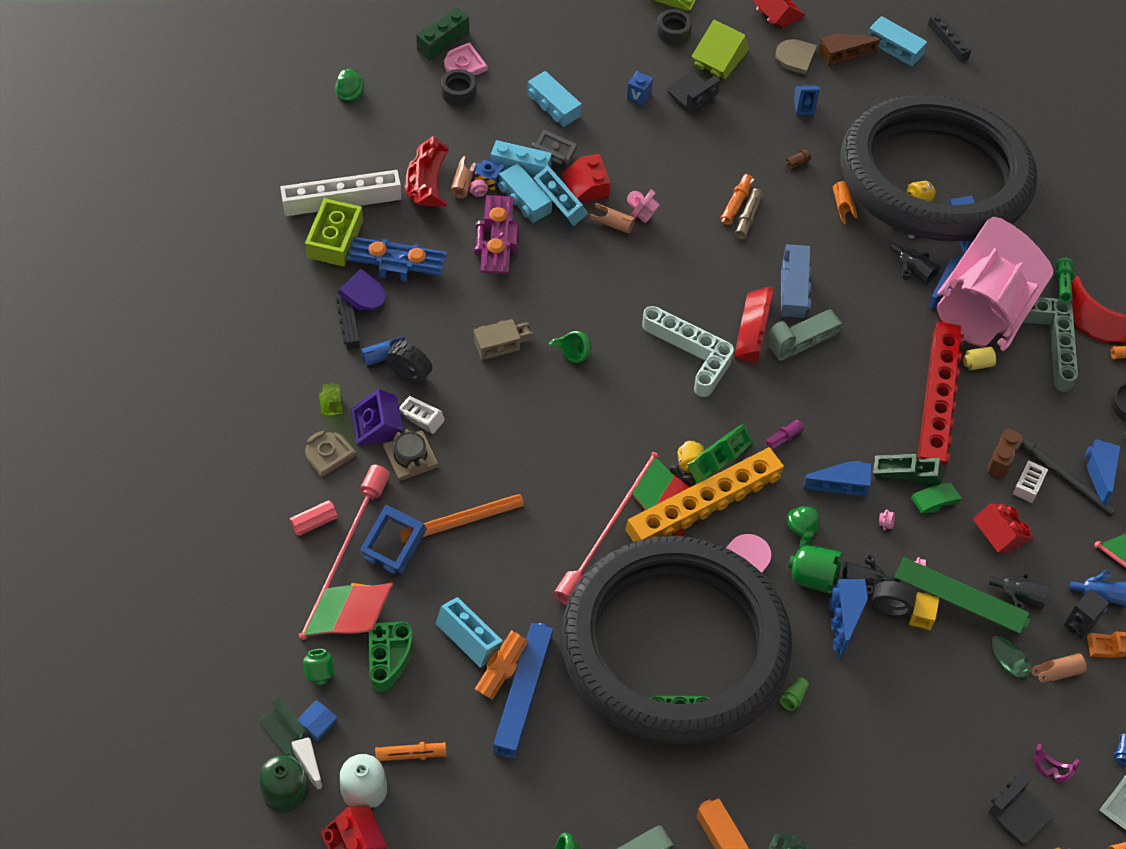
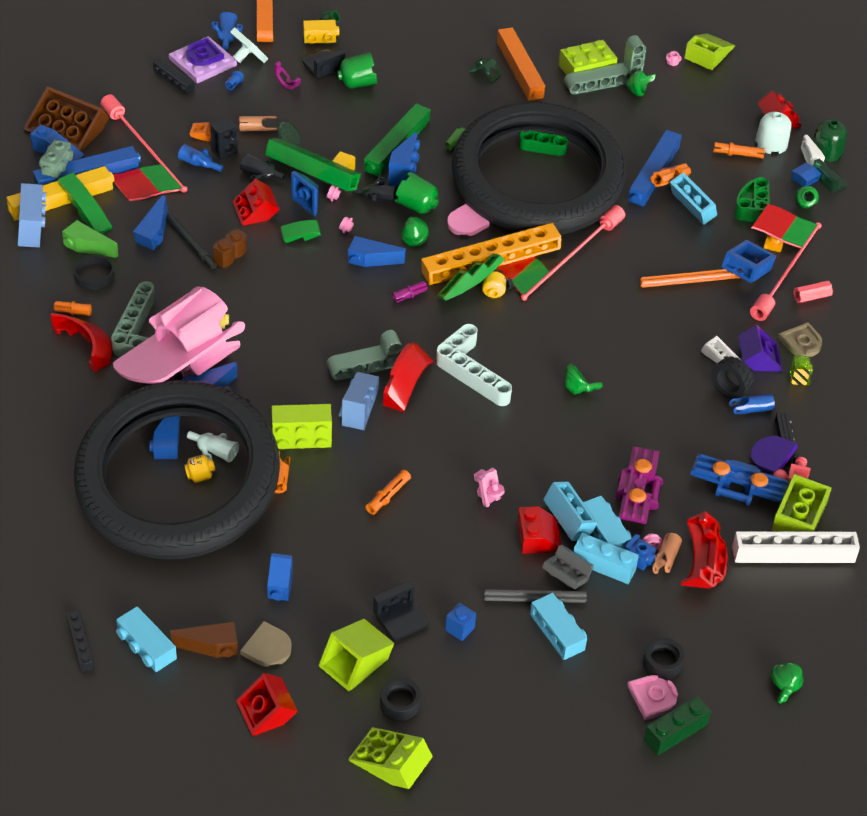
camera: 170 degrees left, 10 degrees down
(339, 276) = (798, 468): none -> coral piece
(408, 454) = (731, 322): piece -> none
(501, 338) = (645, 398): dark tan brick -> none
(581, 125) = (533, 595): none -> dark grey axle
(614, 219) = (520, 489): nougat piece -> none
(746, 219) = (385, 470): dark tan pin -> none
(798, 159) = (310, 523): reddish brown pin -> none
(841, 236) = (302, 426): none -> lime brick
(870, 674) = (414, 121): none -> green brick
(894, 599) = (372, 162): black tyre -> none
(909, 467) = (314, 249): dark green slope -> none
(943, 364) = (267, 294): red brick -> none
(950, 545) = (305, 192): none -> blue slope
(963, 785) = (357, 71): none -> green cylinder
(1025, 492) = (222, 224): white slope -> none
(1068, 270) = (100, 368): green pin -> none

